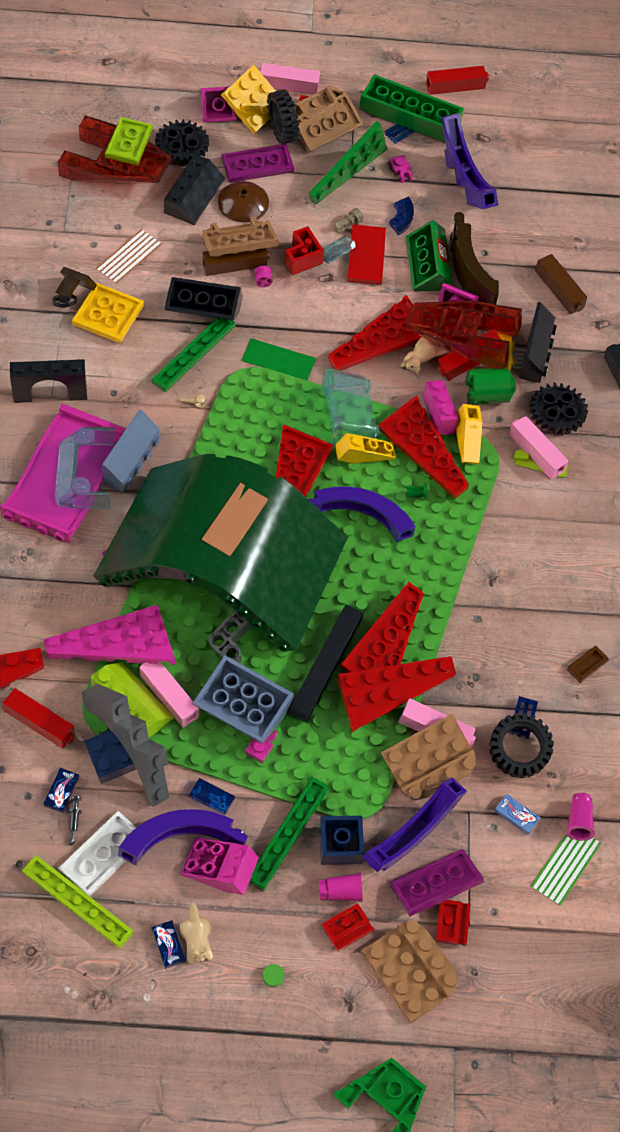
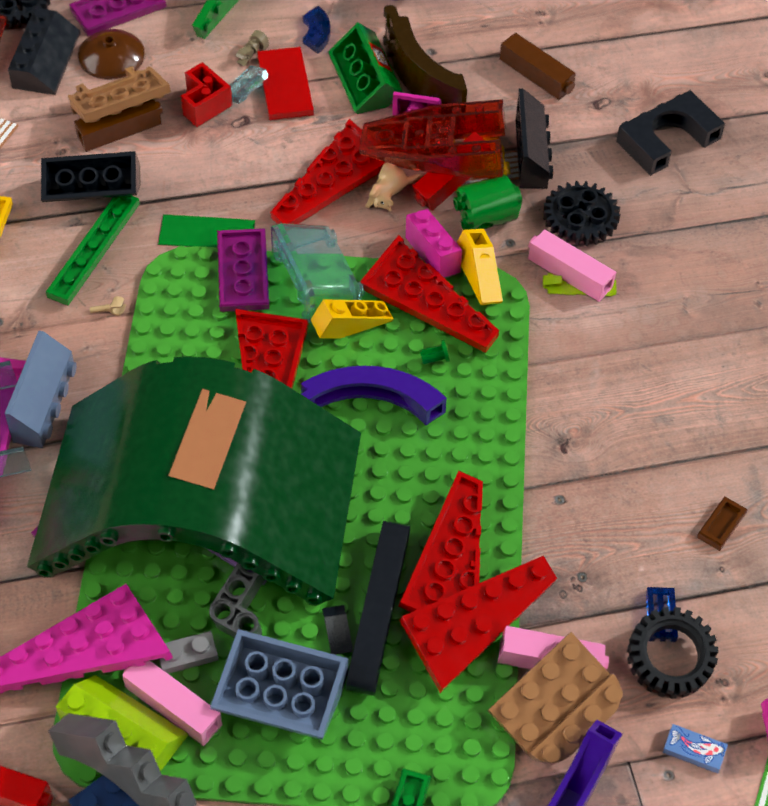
camera: 10 degrees left, 5 degrees down
(189, 662) = (190, 652): none -> light grey plate
(260, 751) = (320, 751): dark pink plate -> none
(263, 276) = (160, 135): dark pink wheel -> none
(294, 672) = (337, 629): none -> black sticker
(296, 395) = (242, 270): none -> magenta tile

